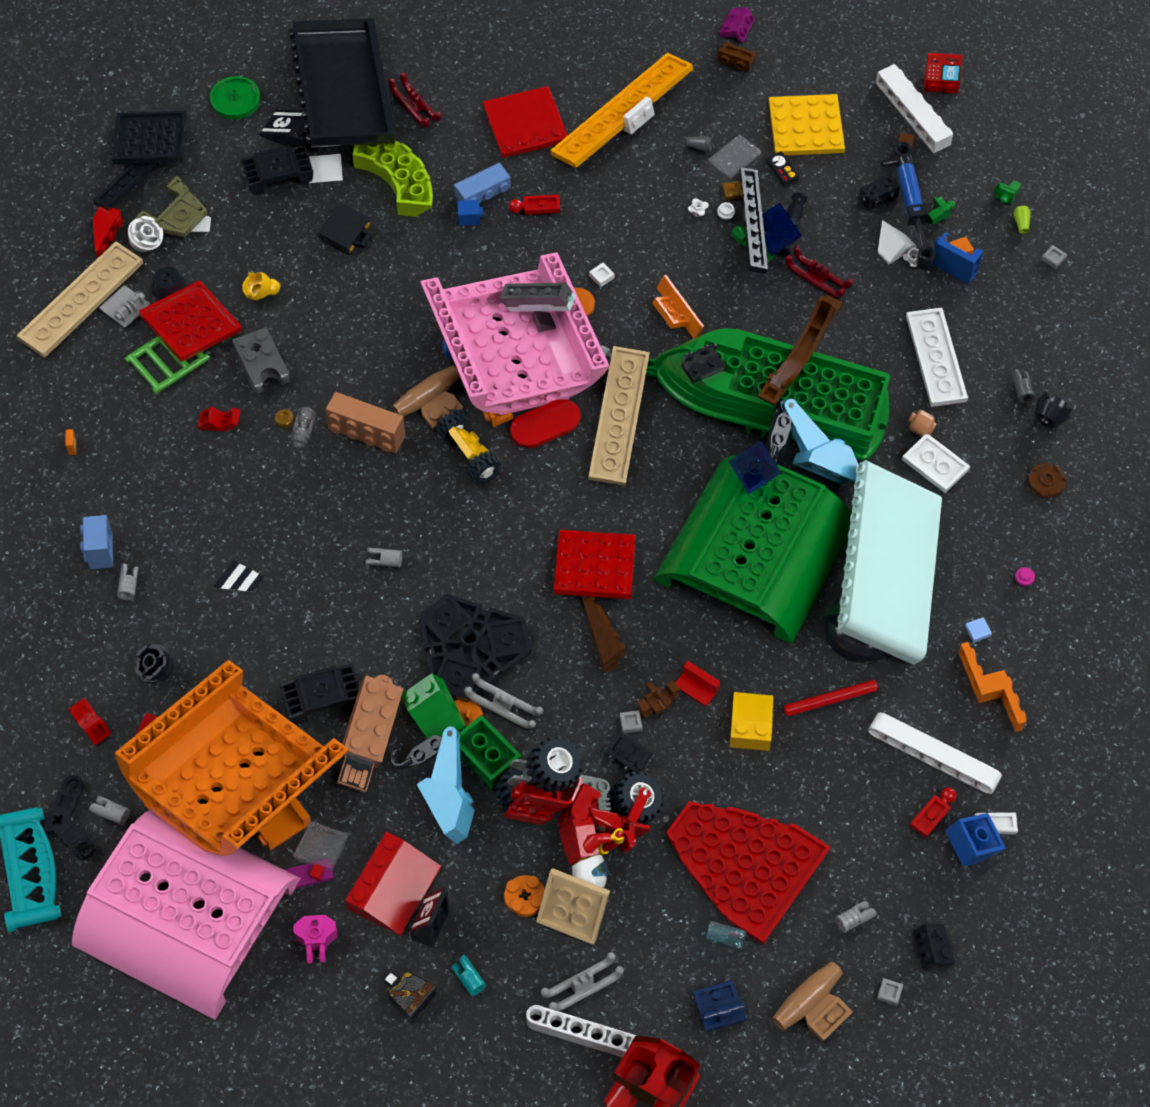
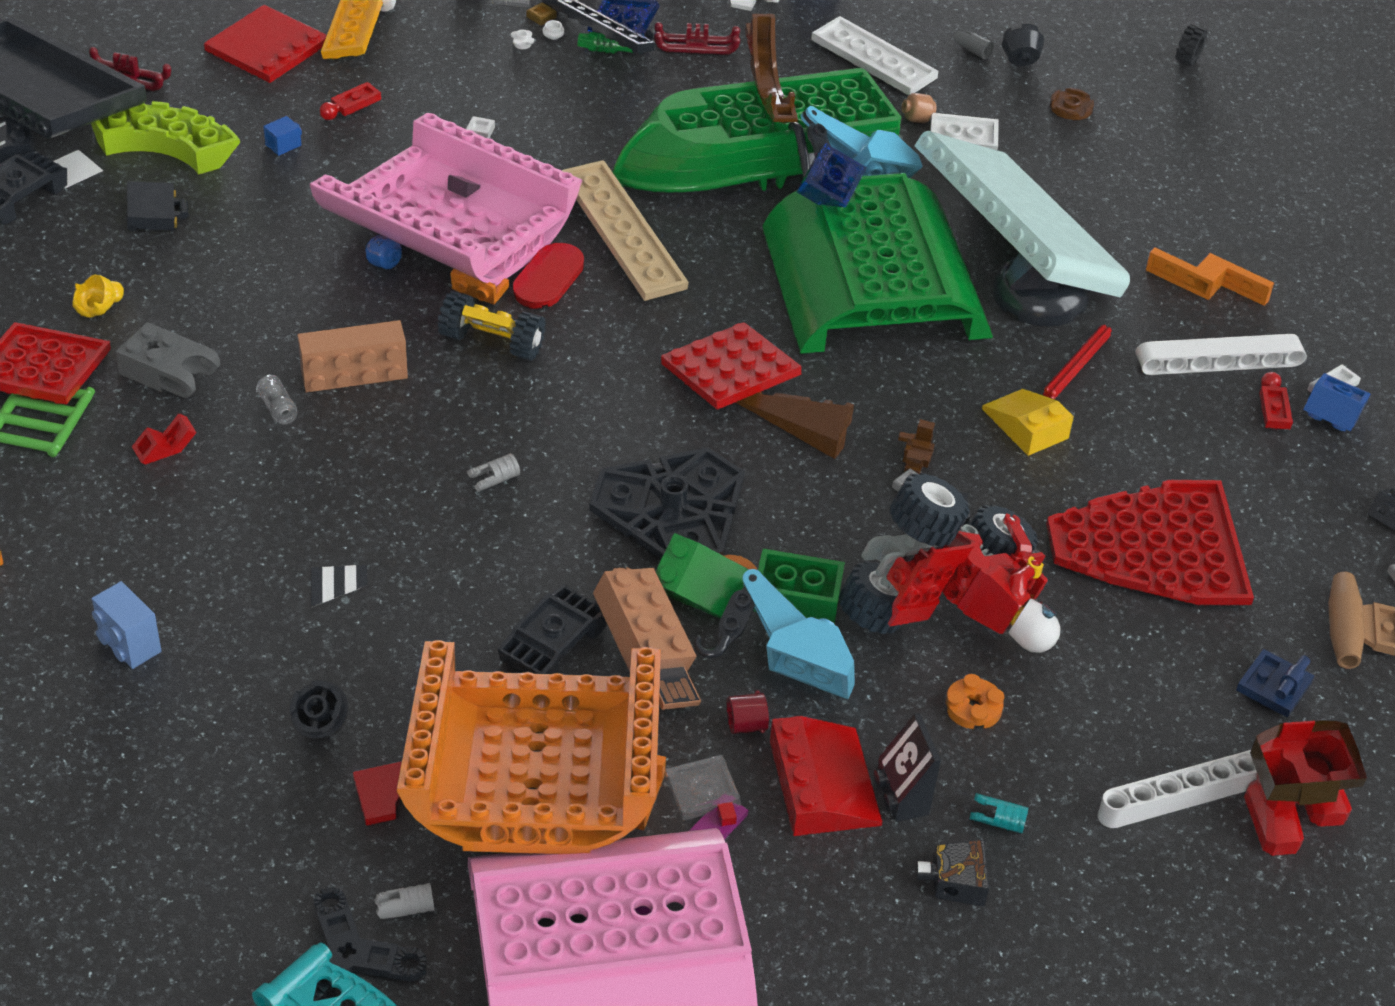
camera: 40 degrees left, 15 degrees down
(88, 721) = (293, 827): red slope -> none
(127, 583) = (199, 653): light grey hinge -> none
(284, 418) = (244, 405): pearl gold tile -> none
(315, 934) = (794, 877): dark pink hinge -> none
(383, 816) = (747, 713): none -> dark red piece
(431, 397) = (398, 302): medium nougat plate -> none
(483, 184) = (280, 100): medium blue brick -> none
(502, 703) = (767, 533): light grey piece -> none
(537, 297) = (447, 153): dark grey piece -> none
(573, 906) = (1046, 669): tan plate -> none
(583, 984) = (1121, 744): light grey piece -> none
(675, 309) = (588, 121): orange bracket -> none
(697, 684) = (946, 411): red panel -> none
(702, 363) = (684, 125): black bracket -> none
(725, 934) = (1207, 615): clear light blue hinge -> none
(855, 916) = (1306, 530): light grey hinge -> none
(978, 629) = (1144, 241): light blue tile -> none
(1024, 576) = (1137, 182): dark pink plate -> none

